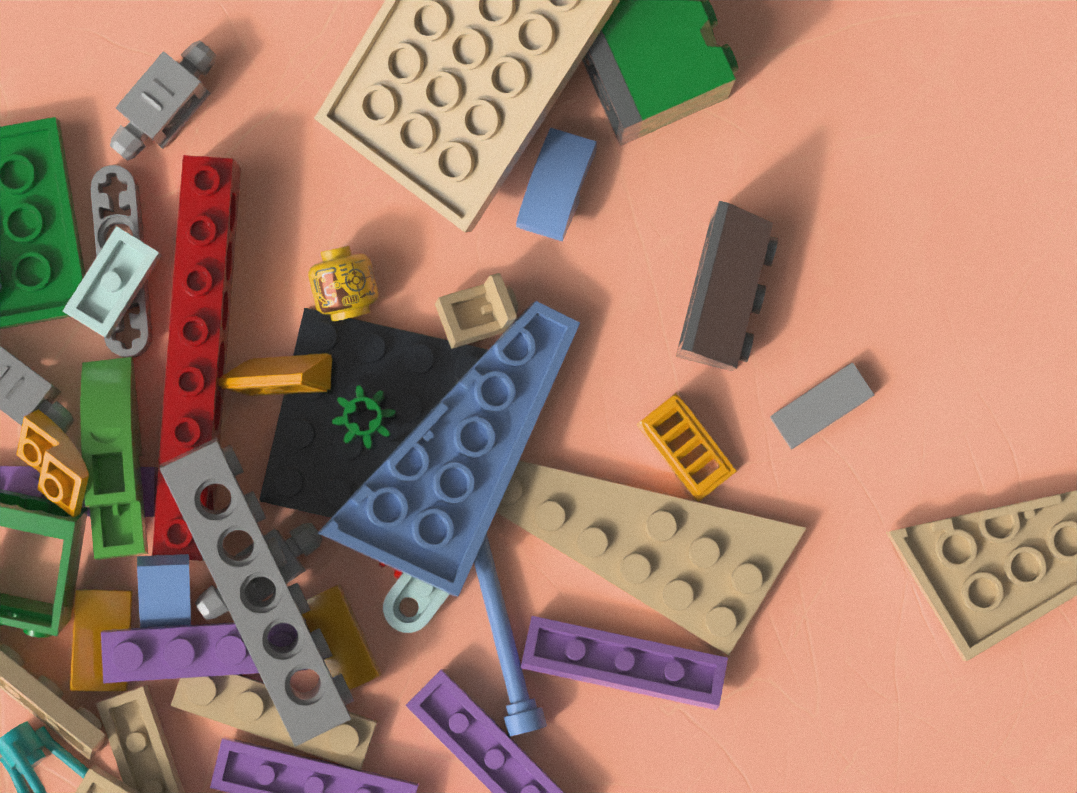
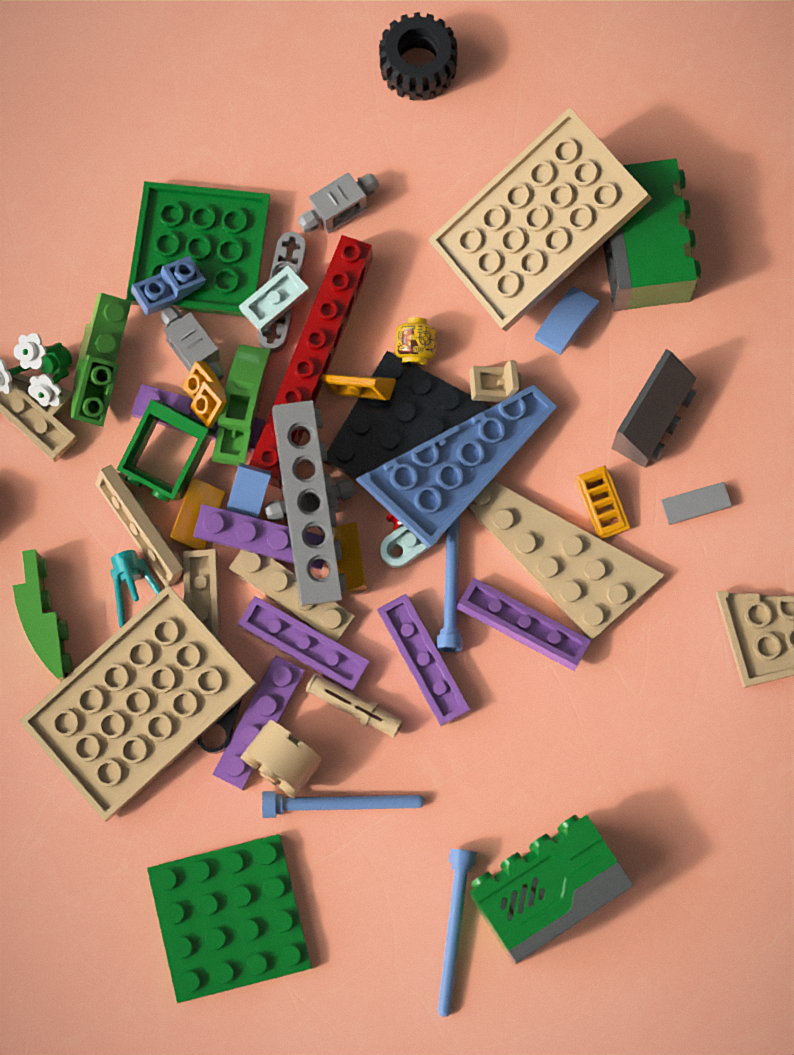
camera: 20 degrees right, 10 degrees down
(375, 425) = (397, 418): green gear -> none

